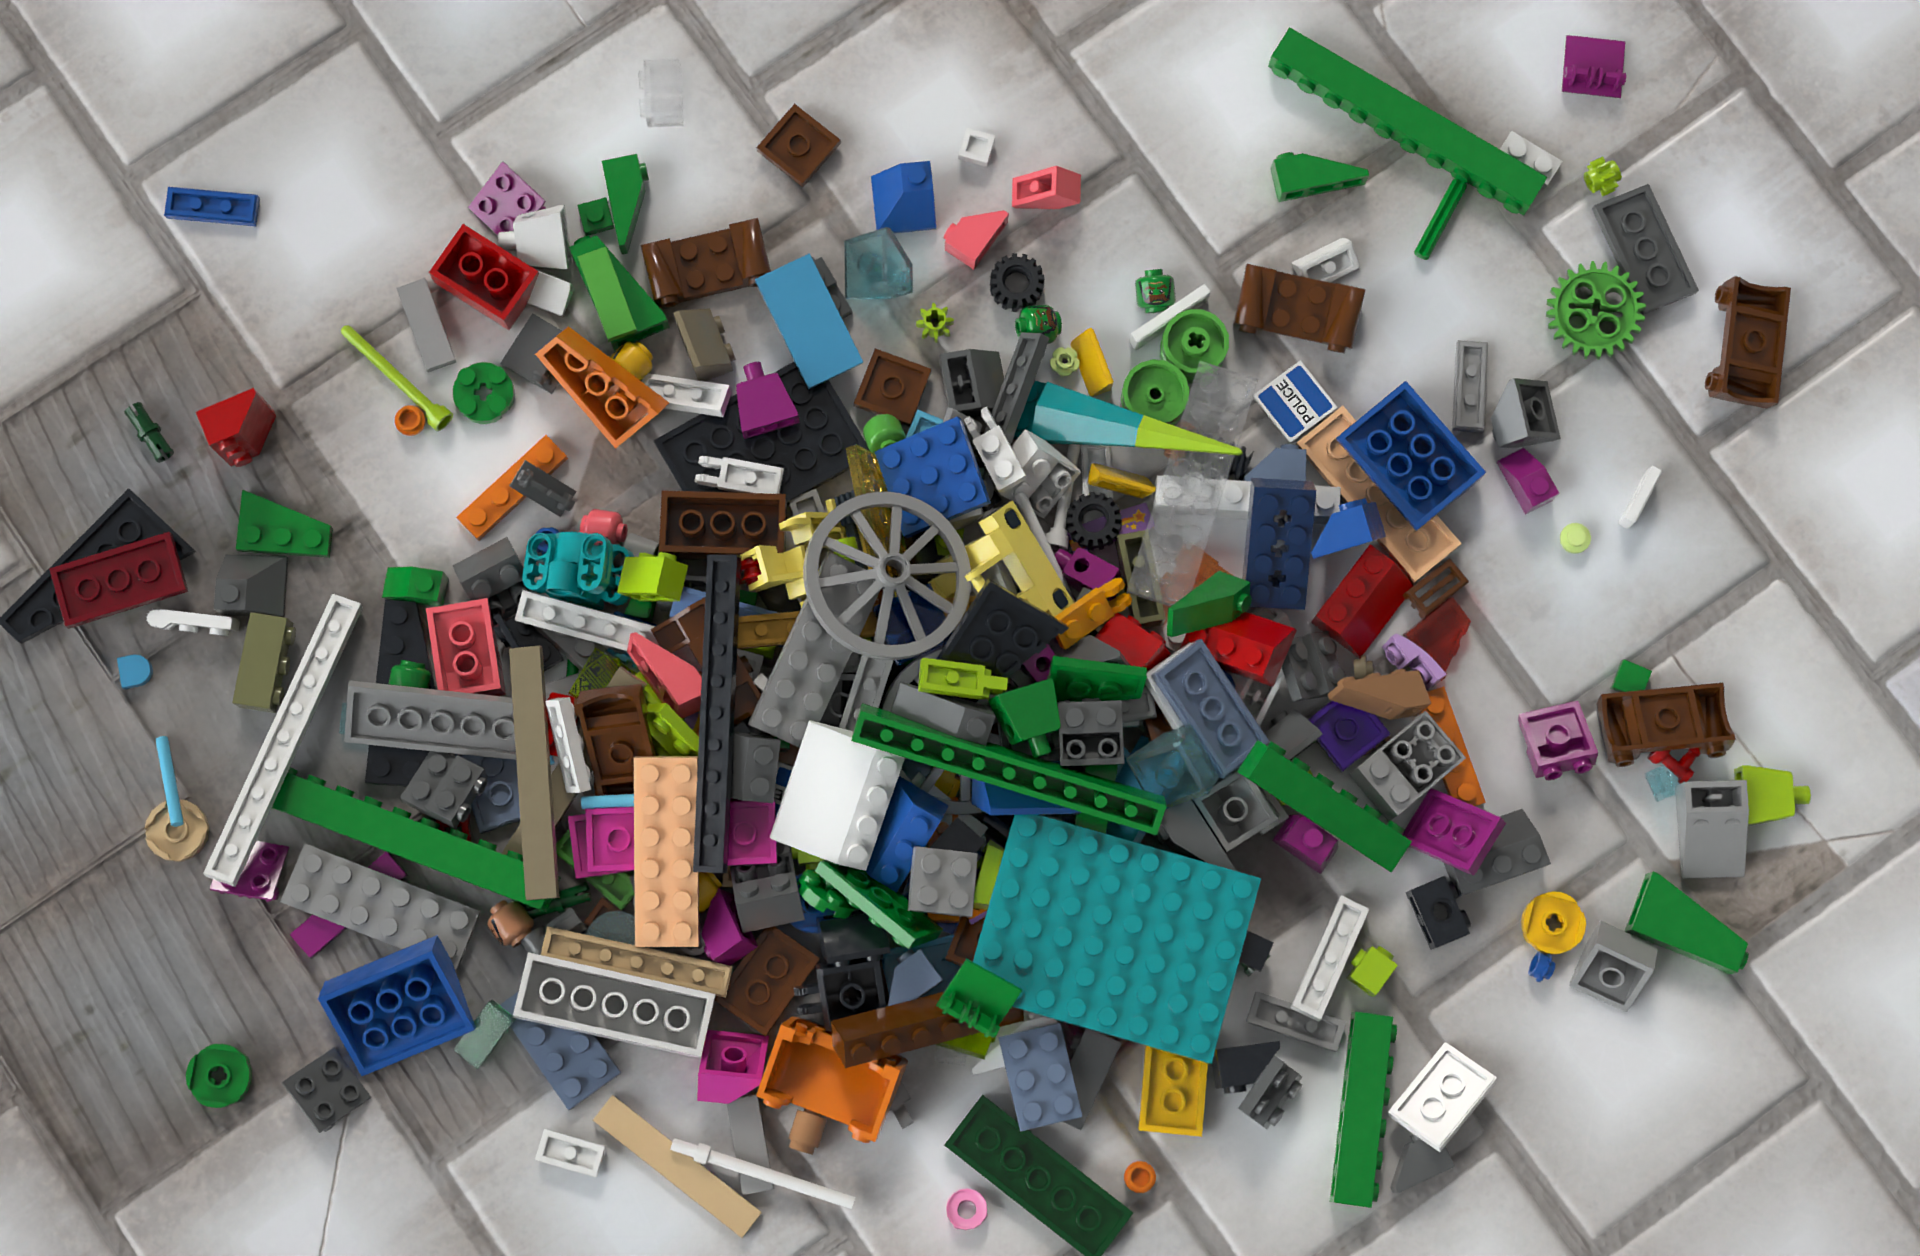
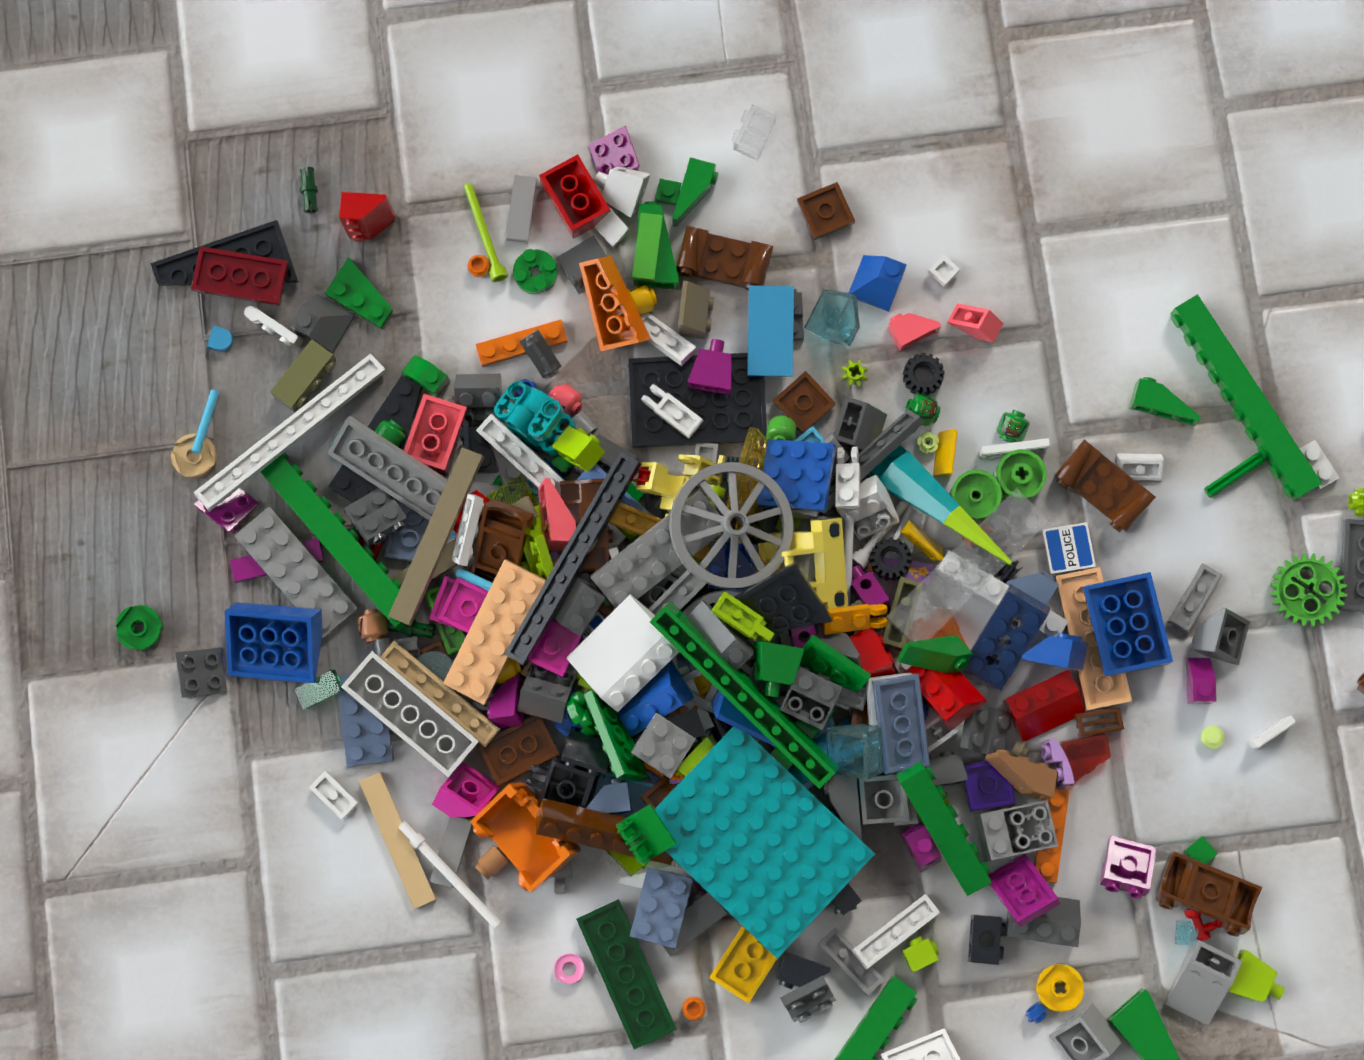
camera: 35 degrees right, 0 degrees up
(212, 206) = (424, 63): blue tile -> none
(720, 523) = (642, 435): reddish brown brick -> none

